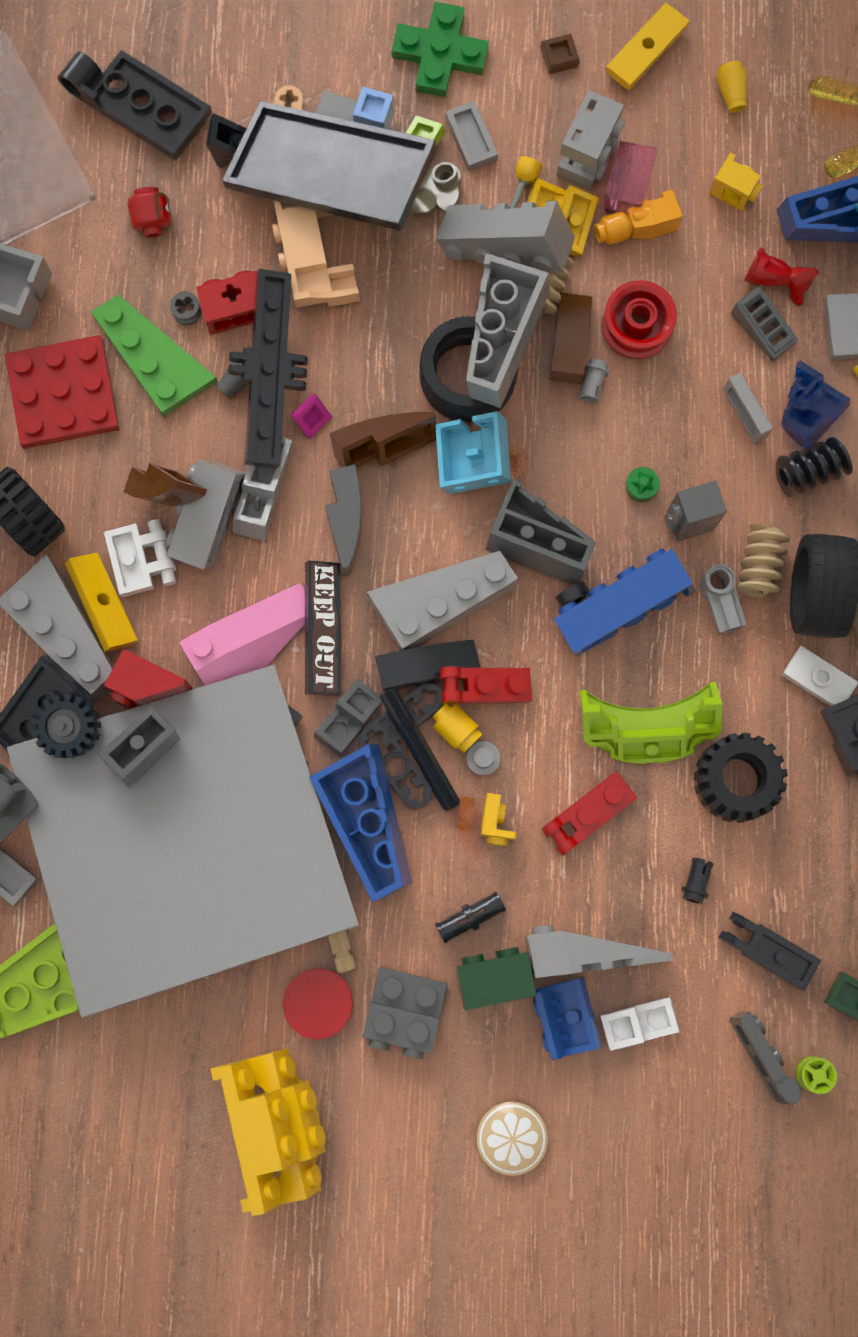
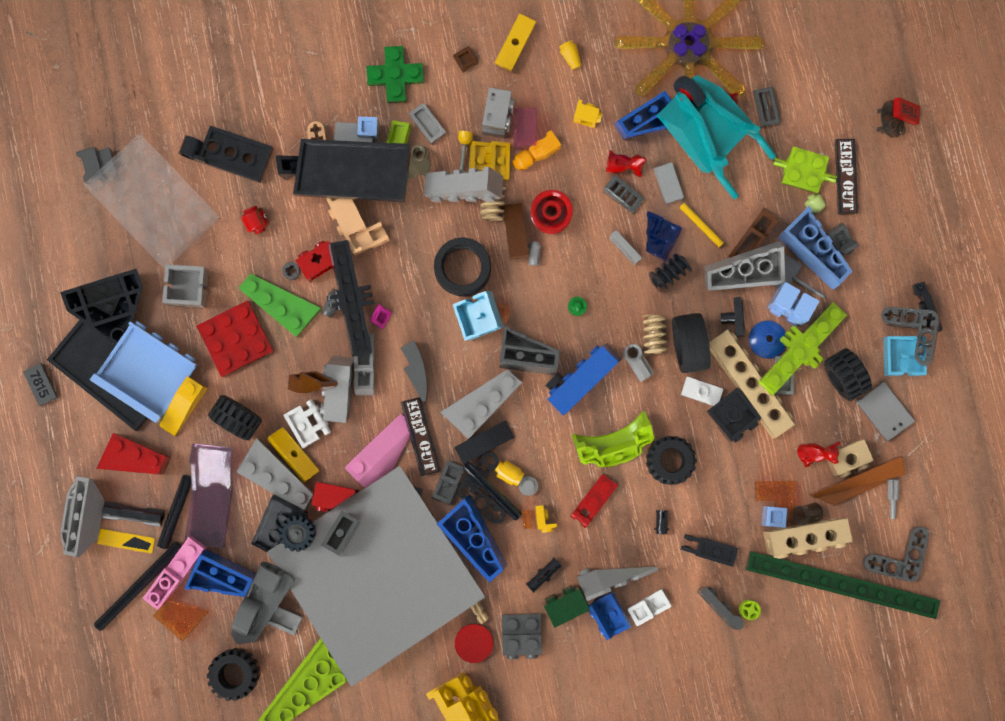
camera: 15 degrees left, 5 degrees up
(383, 438) = (425, 319): reddish brown slope -> none
(486, 685) = (520, 445): red plate -> none
(505, 320) = (476, 241): light grey wedge -> none
(512, 1138) = (596, 686): dish -> none
(695, 511) = (610, 317): dark grey brick -> none

